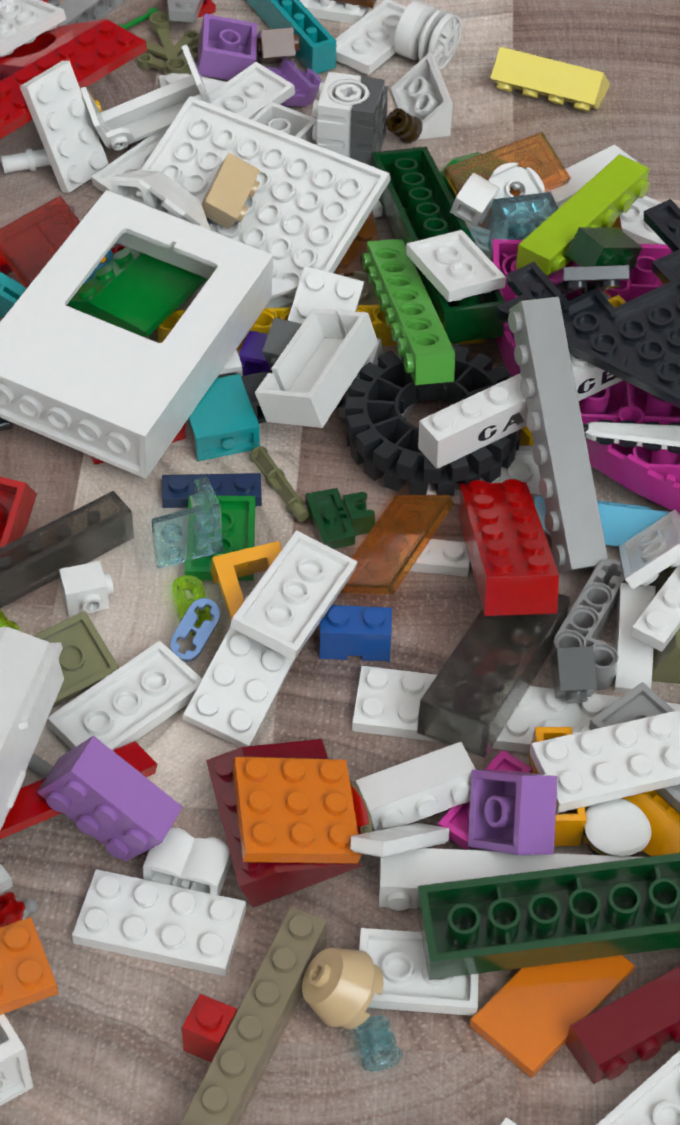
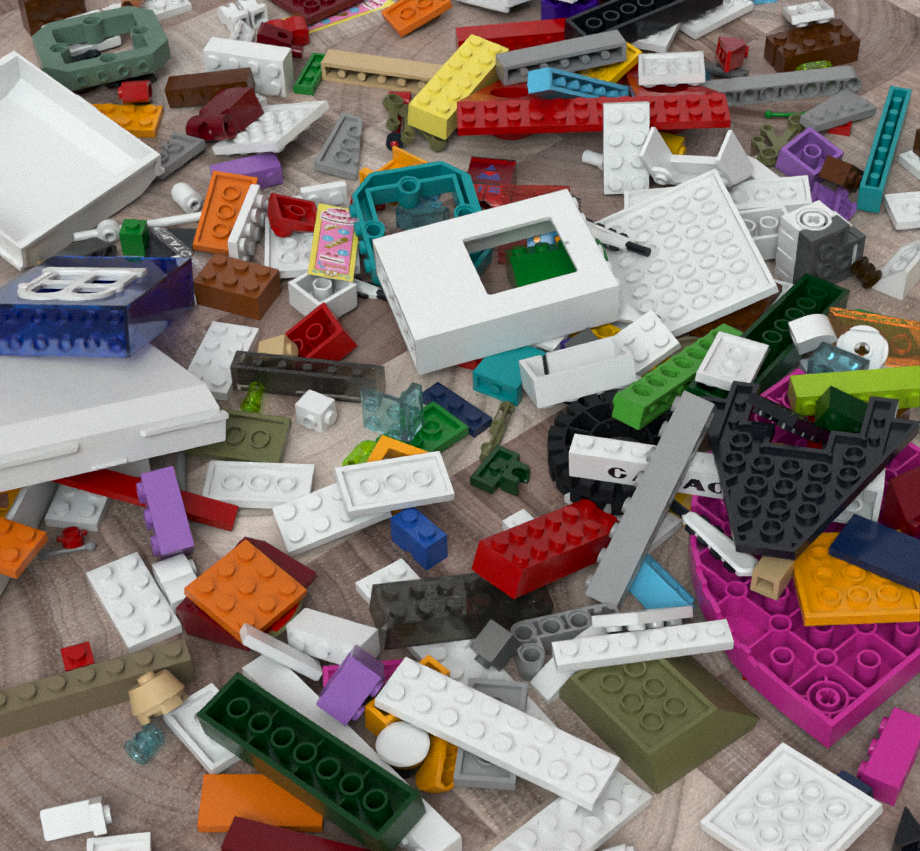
camera: 50 degrees right, 5 degrees down
(161, 193) = (612, 222): white brick -> none
(187, 626) = (344, 460): medium blue beam -> none
(229, 190) = (667, 239): tan brick -> none
(396, 542) = (507, 507): clear orange tile -> none

